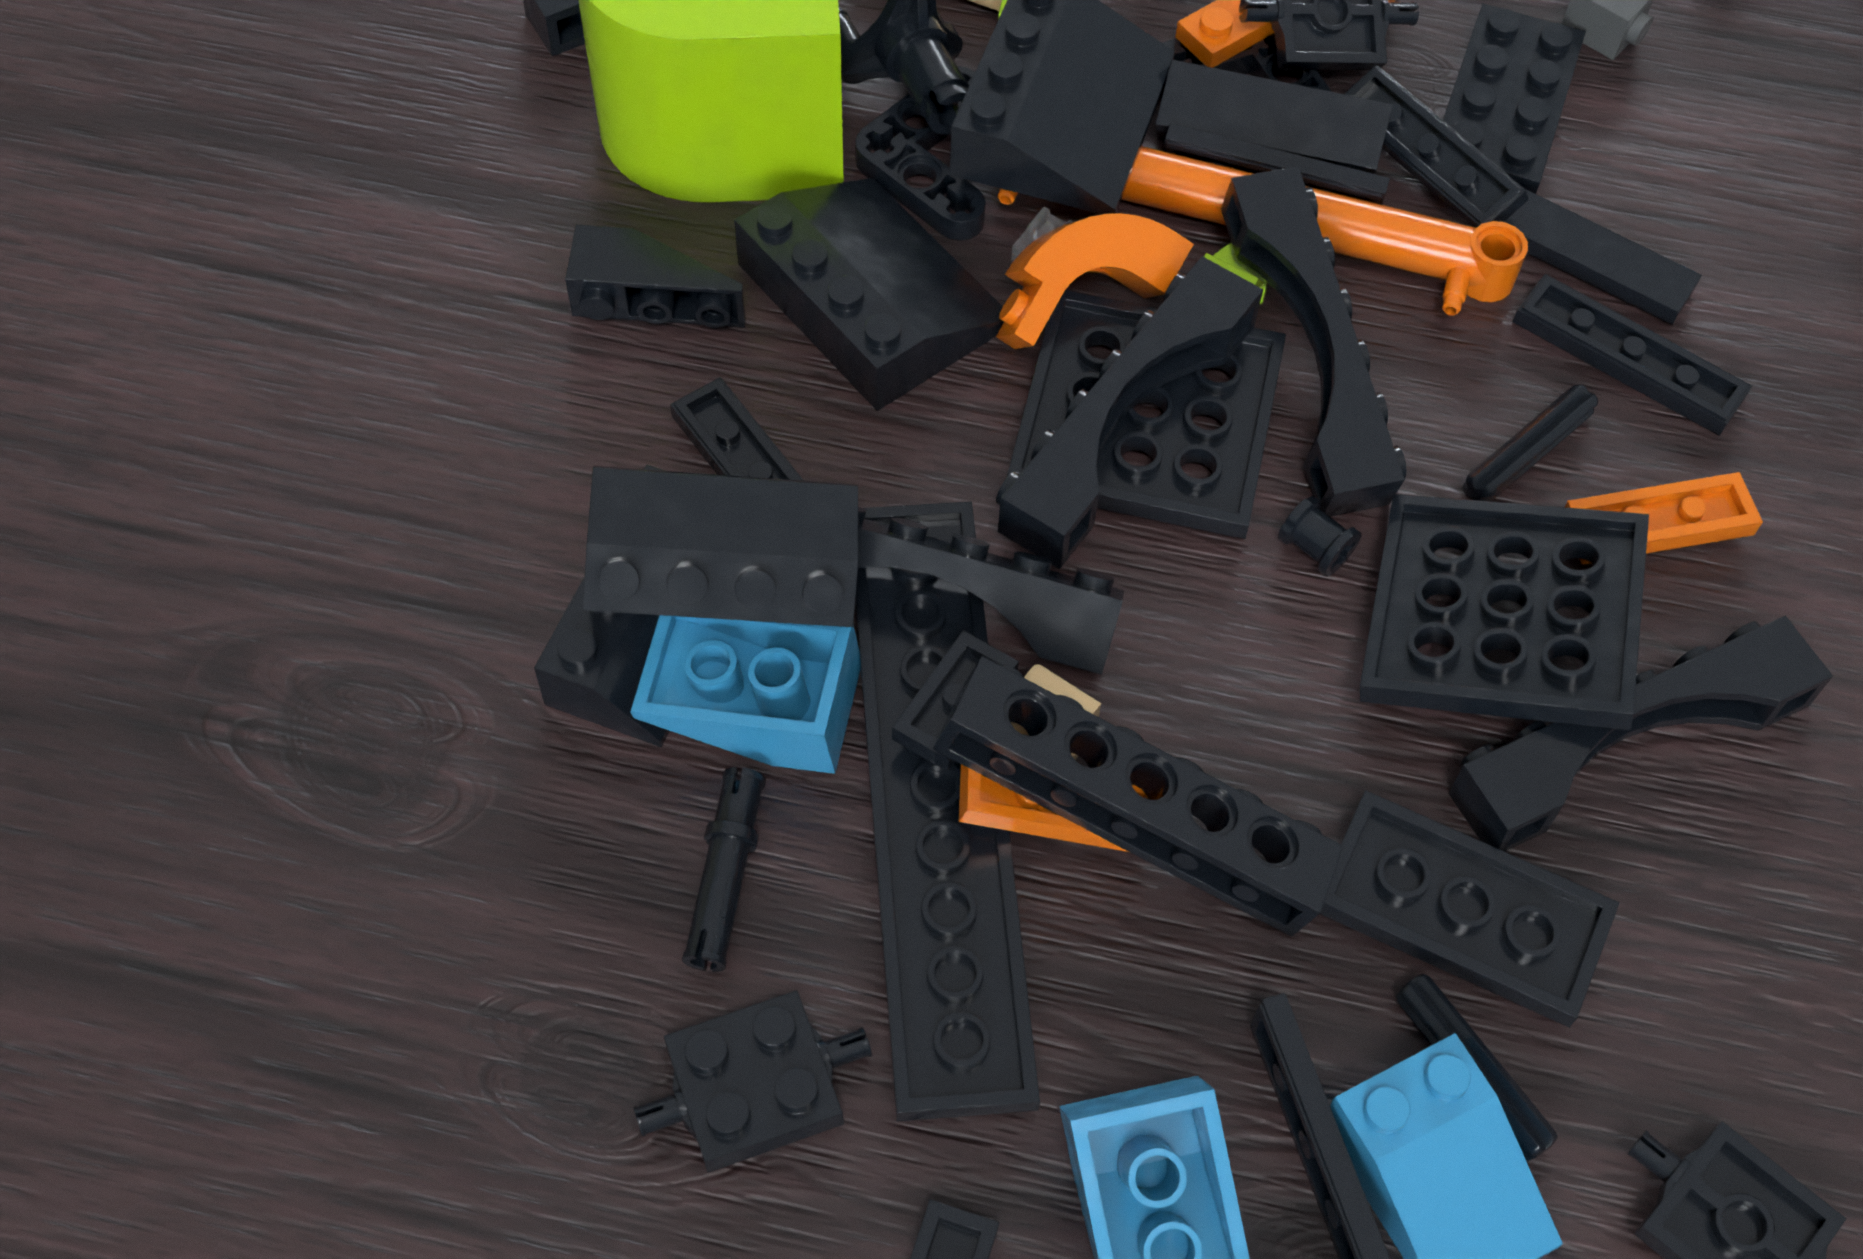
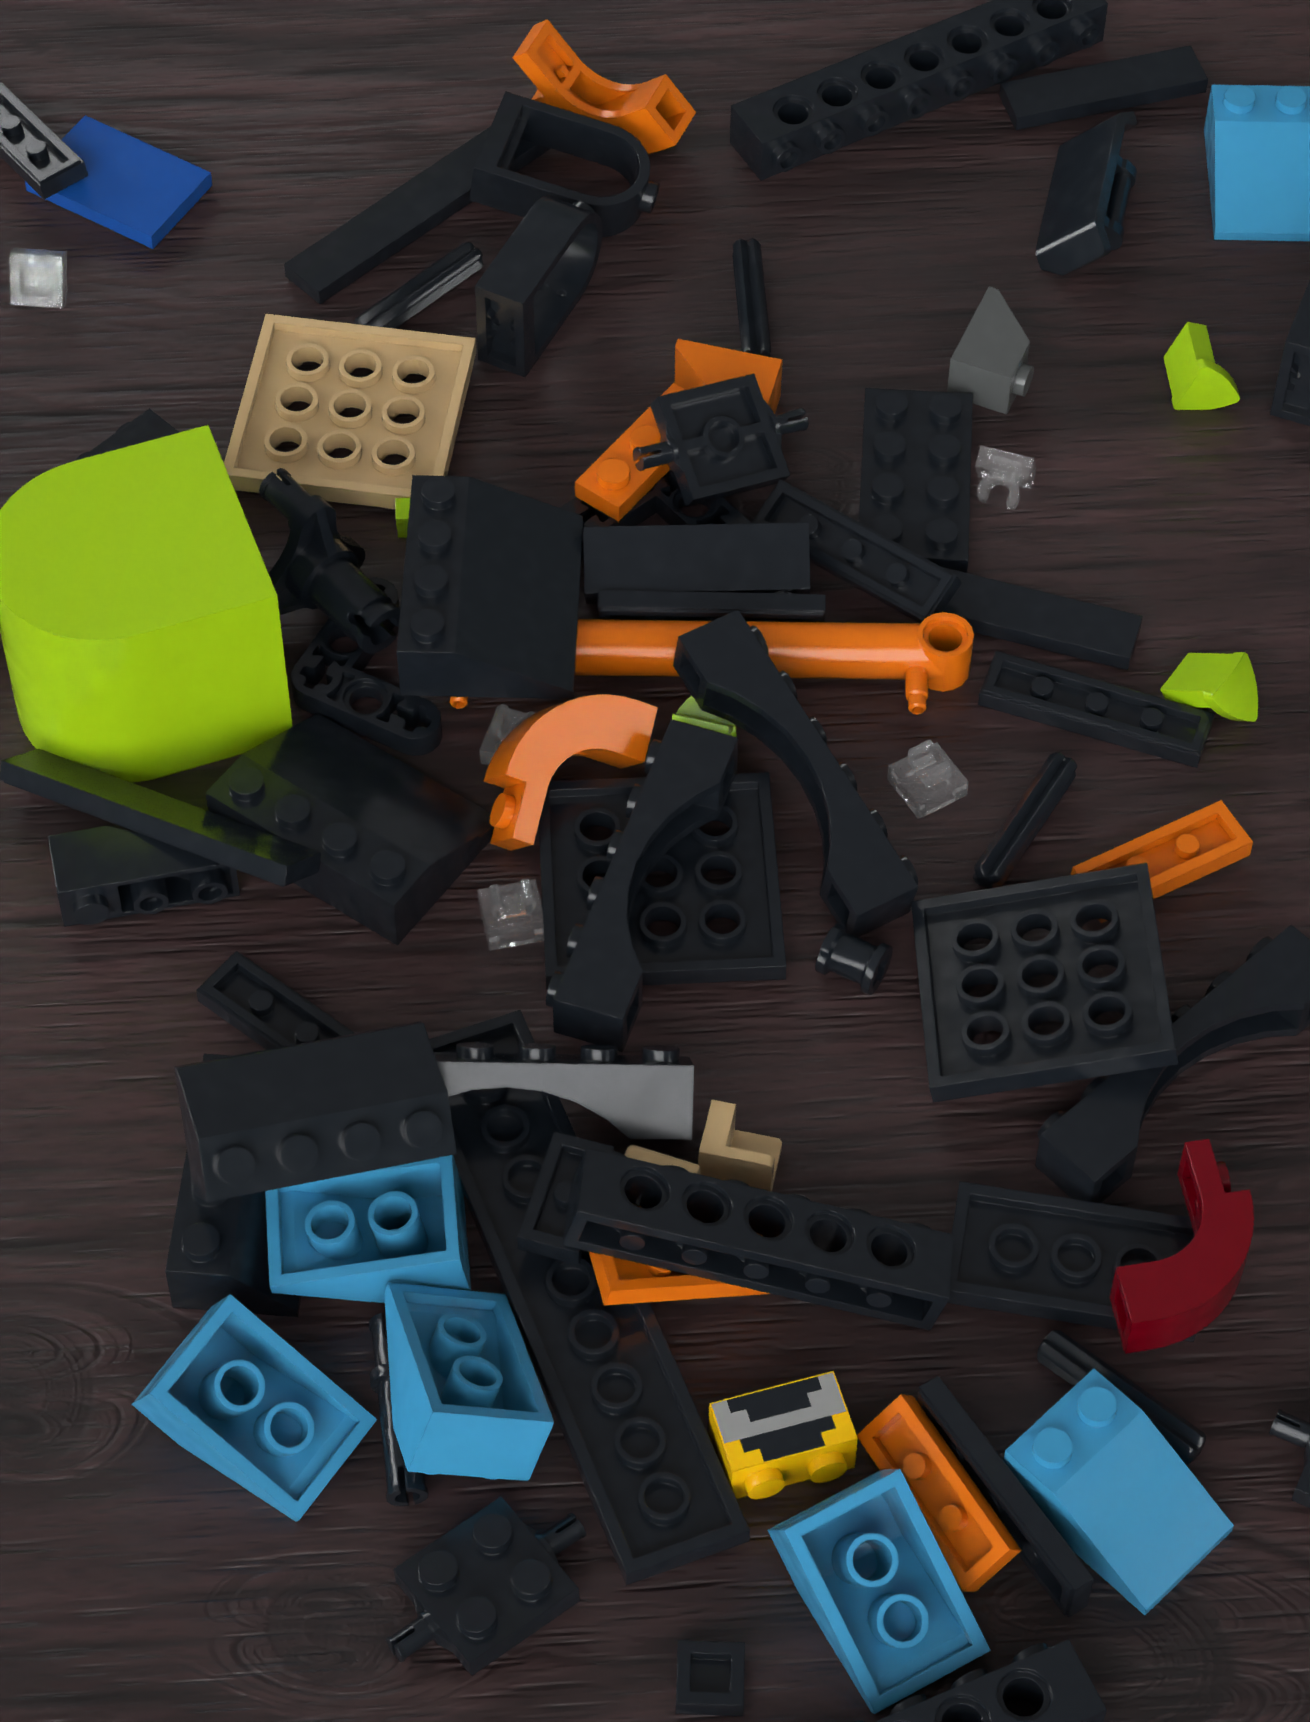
camera: 15 degrees left, 5 degrees down
(583, 832) = (255, 1409): none -> dark azure slope
(690, 235) = (161, 817): none -> black tile
(791, 864) = (462, 1384): none -> dark azure slope
(994, 408) = (511, 914): none -> clear tile
(1105, 1010) = (783, 1436): none -> brick
(1144, 702) = (736, 1153): none -> tan panel
(1258, 1128) = (952, 1504): none -> orange plate
(1442, 379) = (927, 779): none -> clear tile
(1572, 977) = (1184, 1293): none -> dark red arch
(1598, 105) = (1004, 469): none -> clear tile
(1762, 354) = (1216, 682): none -> lime tile
(1812, 62) = (1194, 375): none -> lime tile

